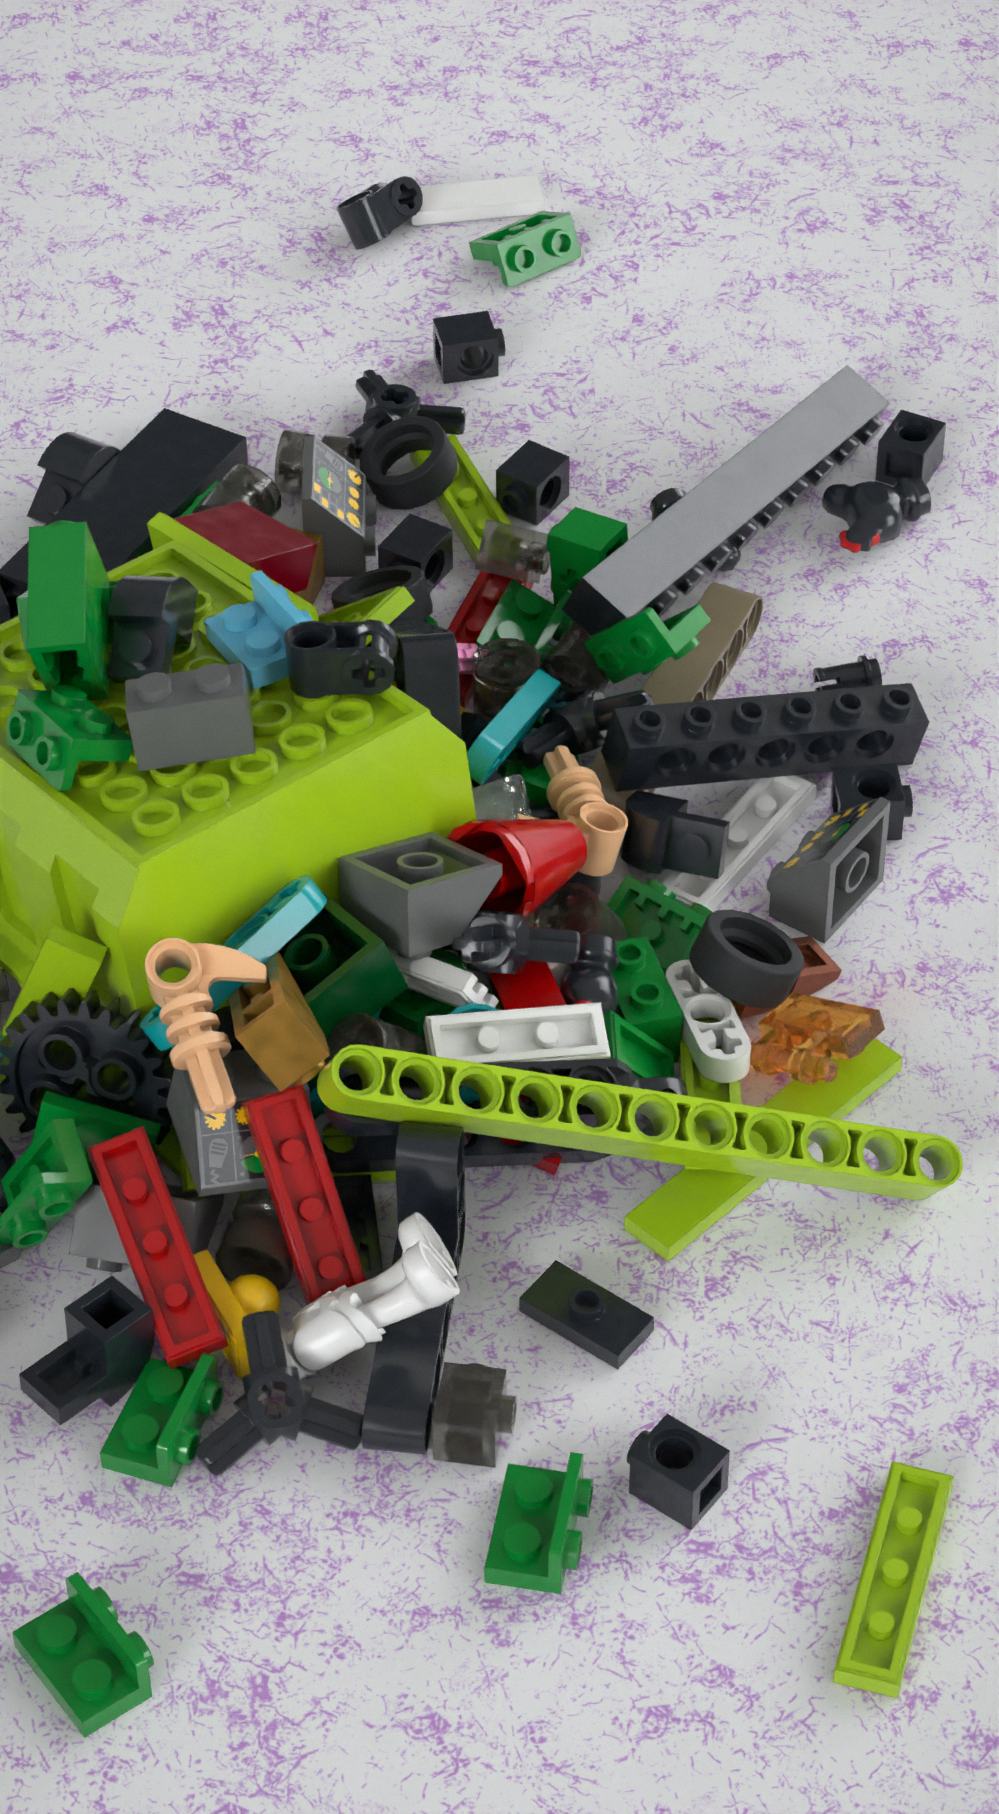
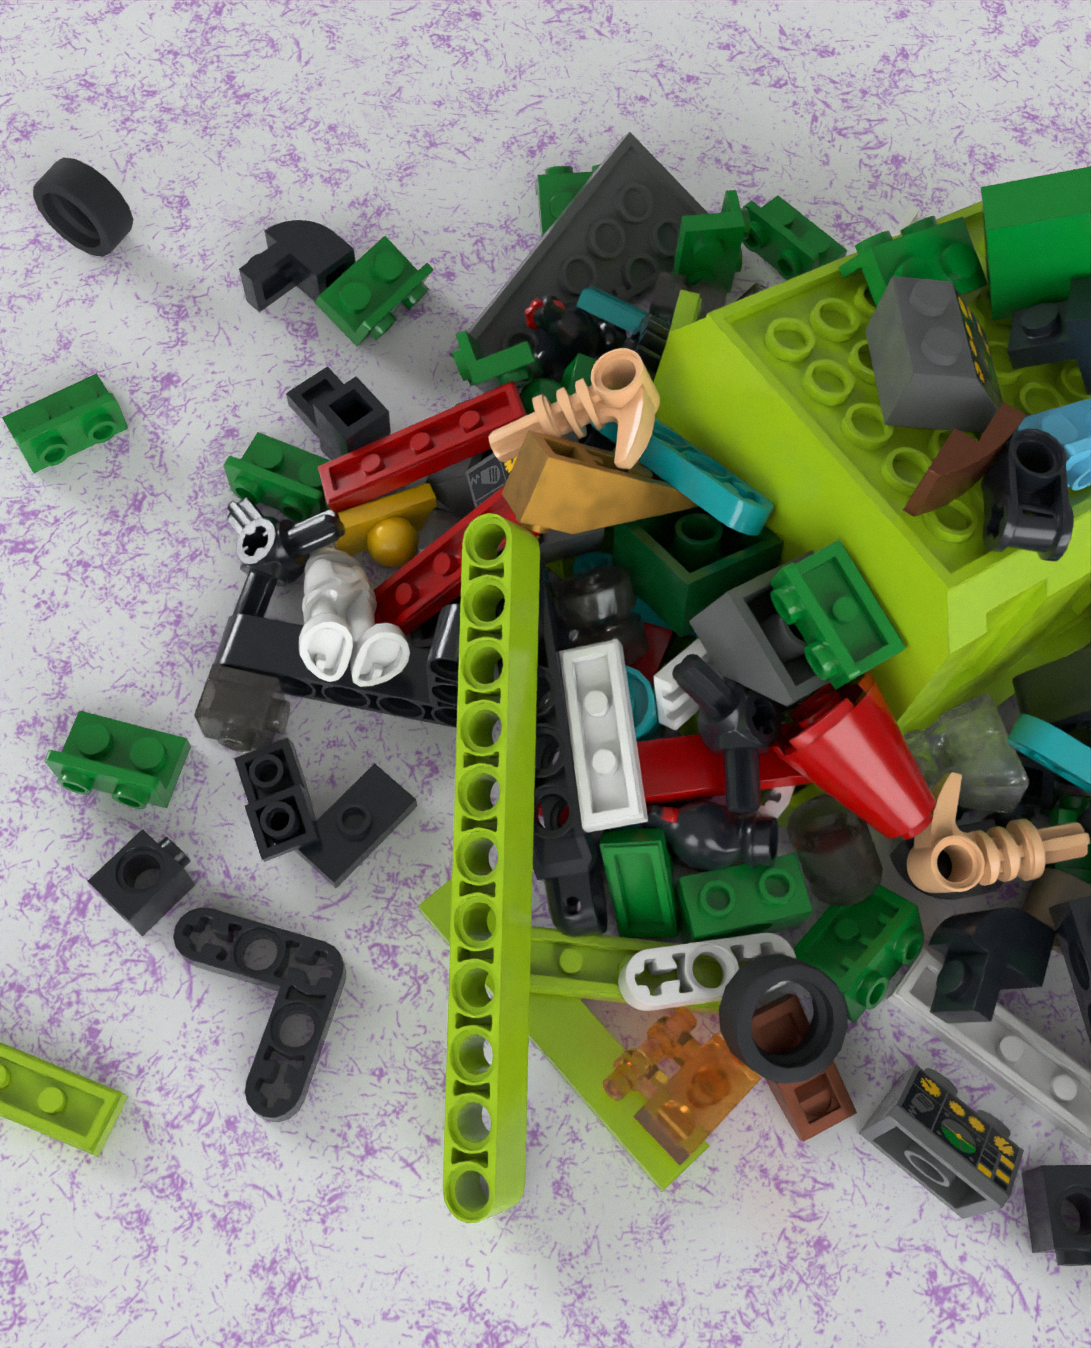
camera: 90 degrees right, 20 degrees up
(309, 686) = (963, 462): none -> copper slope
(420, 828) = (834, 615): none -> green bracket
(573, 1375) = (277, 799): none -> black slope
(770, 1342) = (294, 996): none -> black beam

